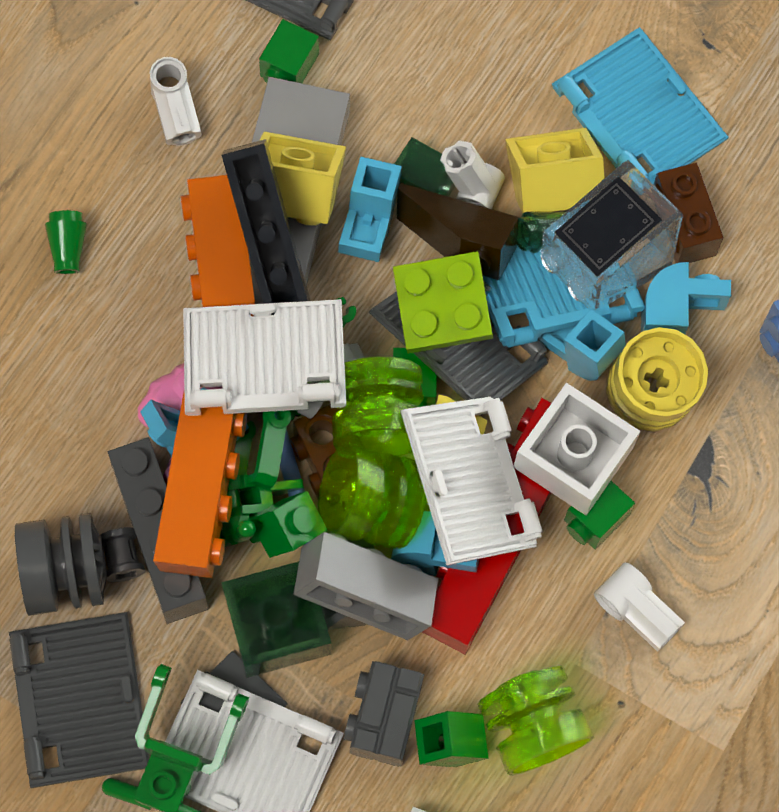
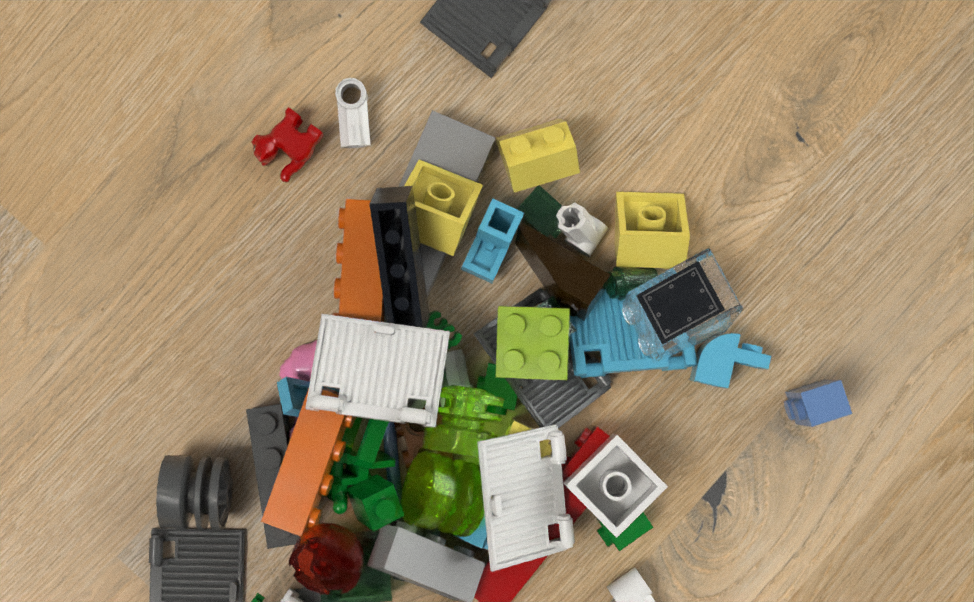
camera: 10 degrees right, 15 degrees up
(66, 240) = (246, 215): green cone -> none
(103, 144) = (294, 144): none -> red animal
(121, 555) = (245, 487): flat silver bush -> none
(243, 592) = (327, 558): none -> clear red cylinder
(289, 53) = (453, 91): green brick -> none
(405, 103) = (538, 154): none -> light yellow slope
(587, 346) = (644, 389): medium azure brick -> none
(637, 109) = (731, 186): medium azure window -> none
(679, 373) = (710, 439): light yellow wheel -> none
(699, 229) = (750, 282): reddish brown brick -> none

